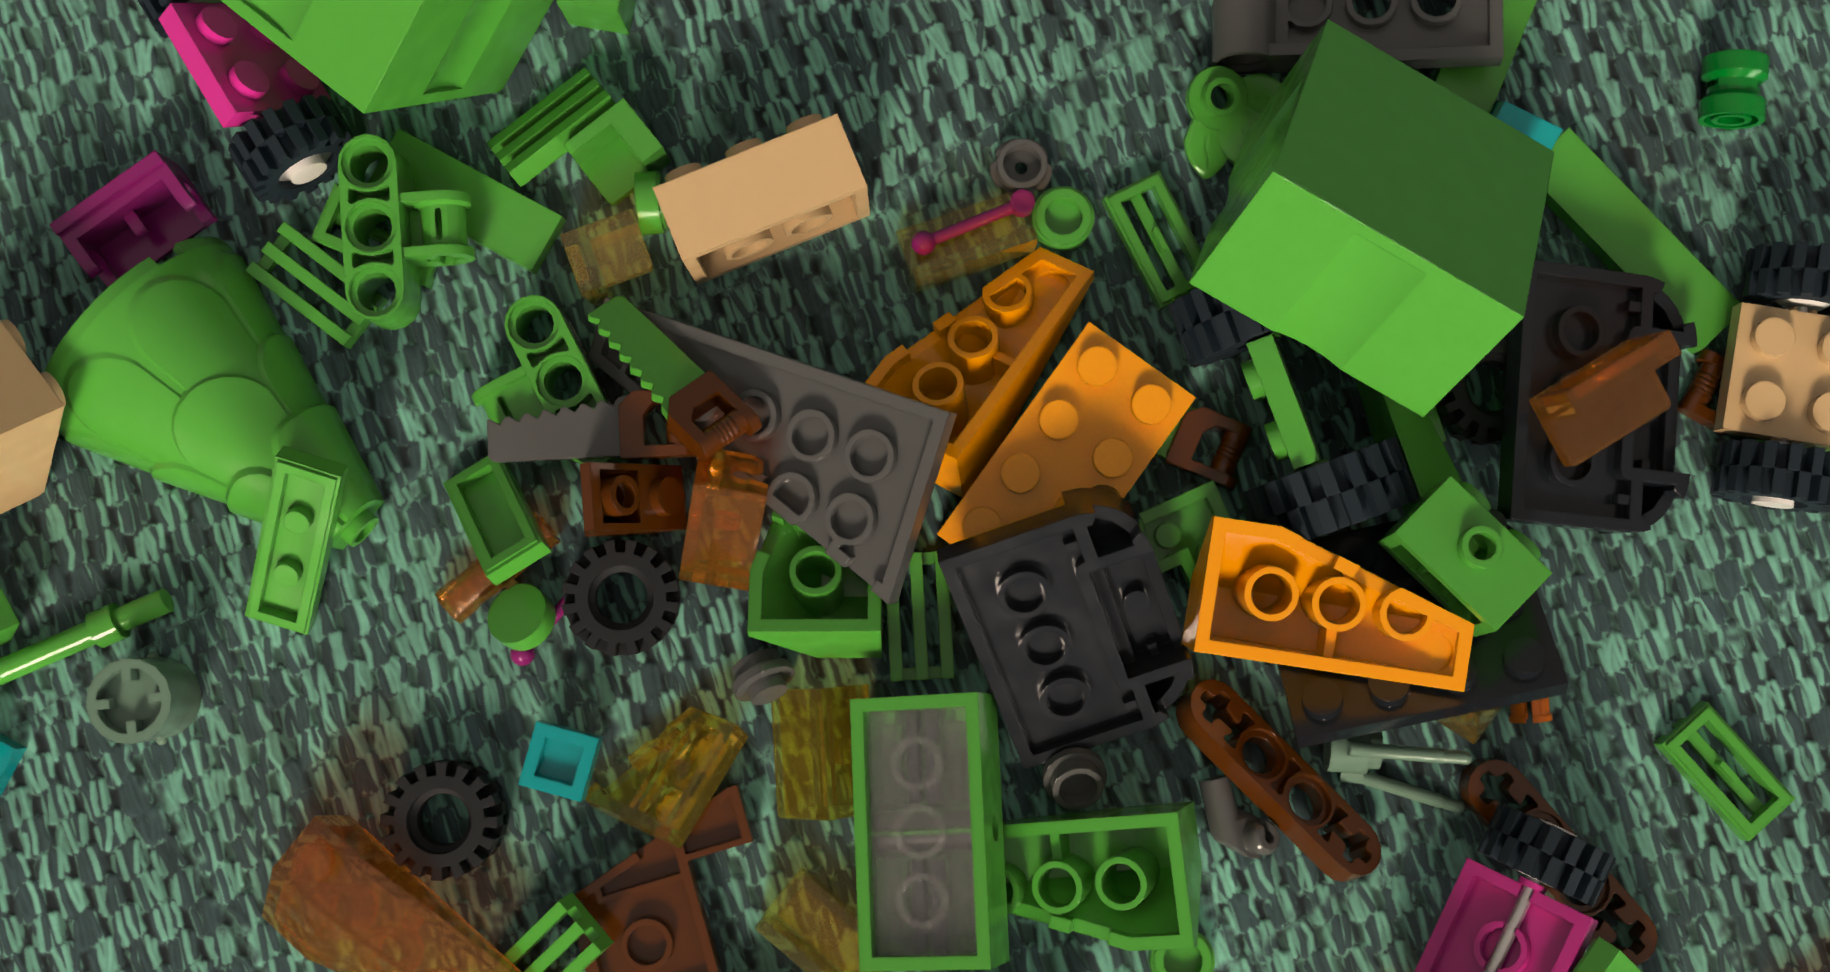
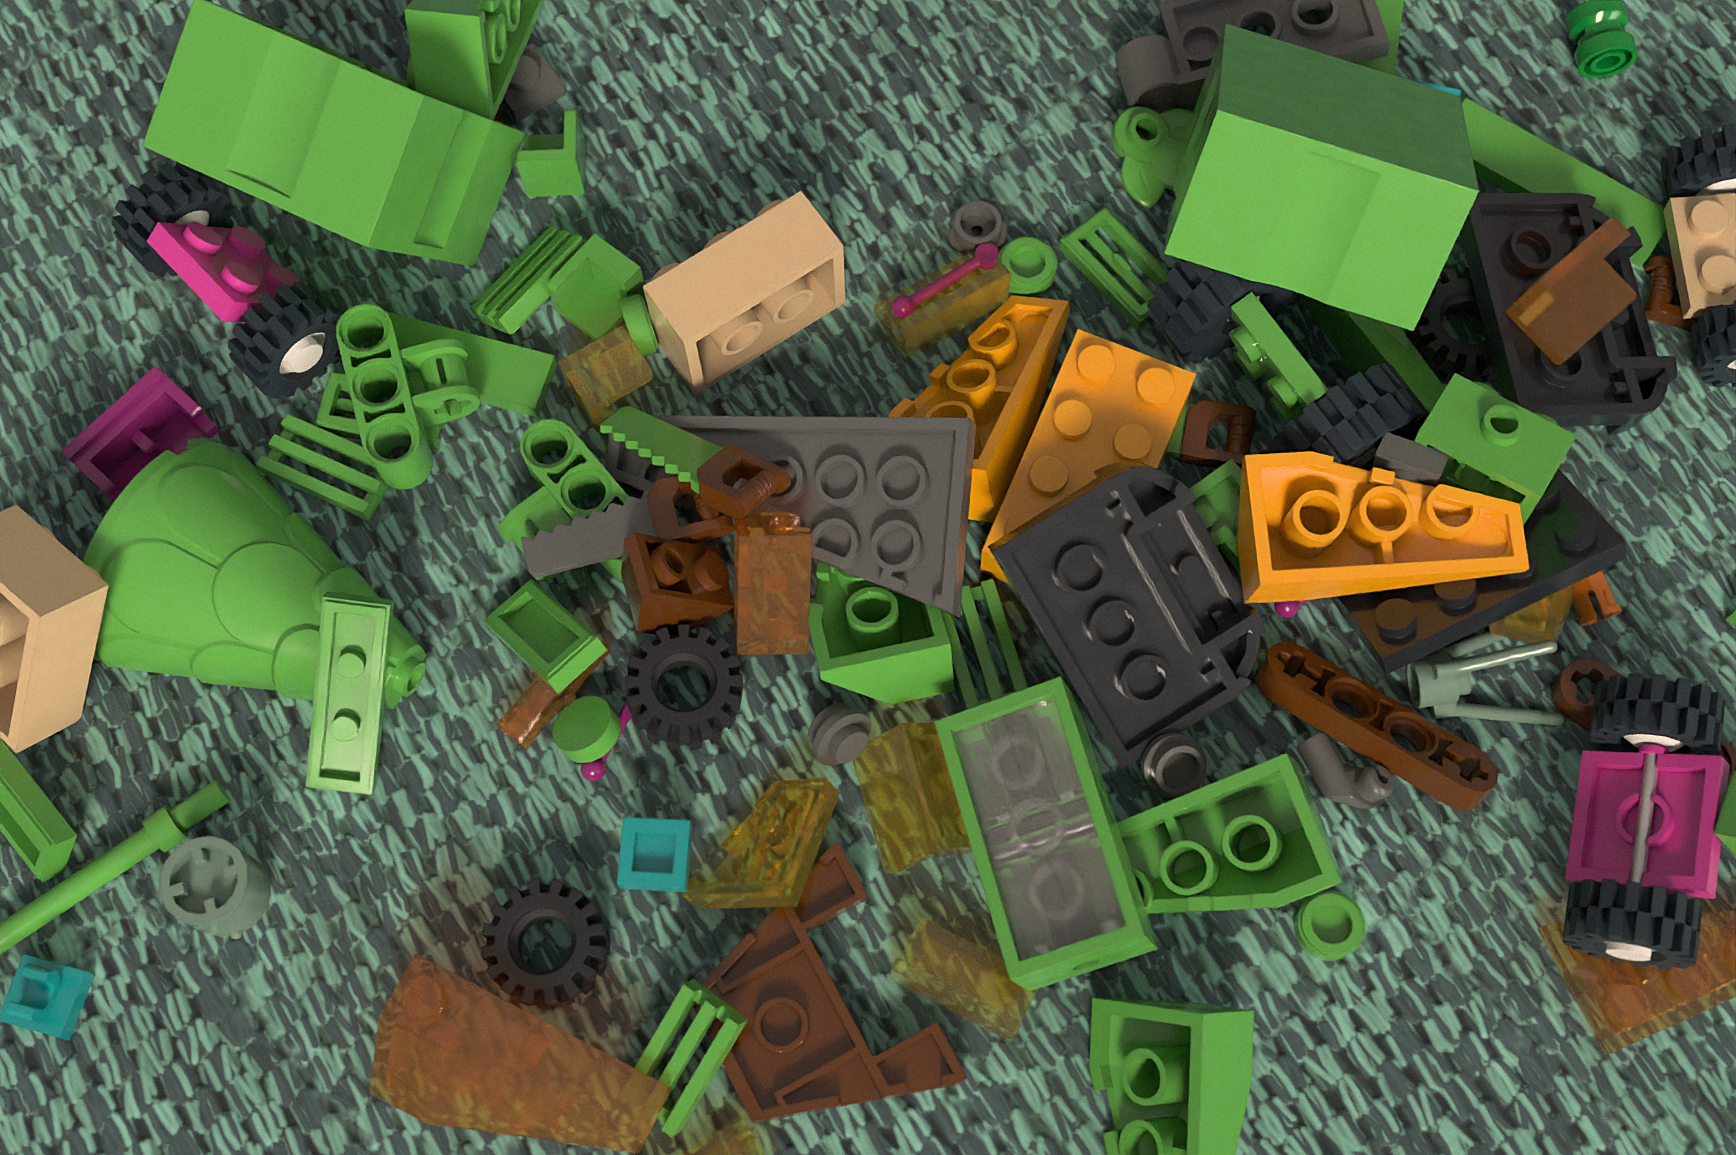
camera: 10 degrees left, 15 degrees down
(1377, 553) = (1410, 460): none -> dark grey plate

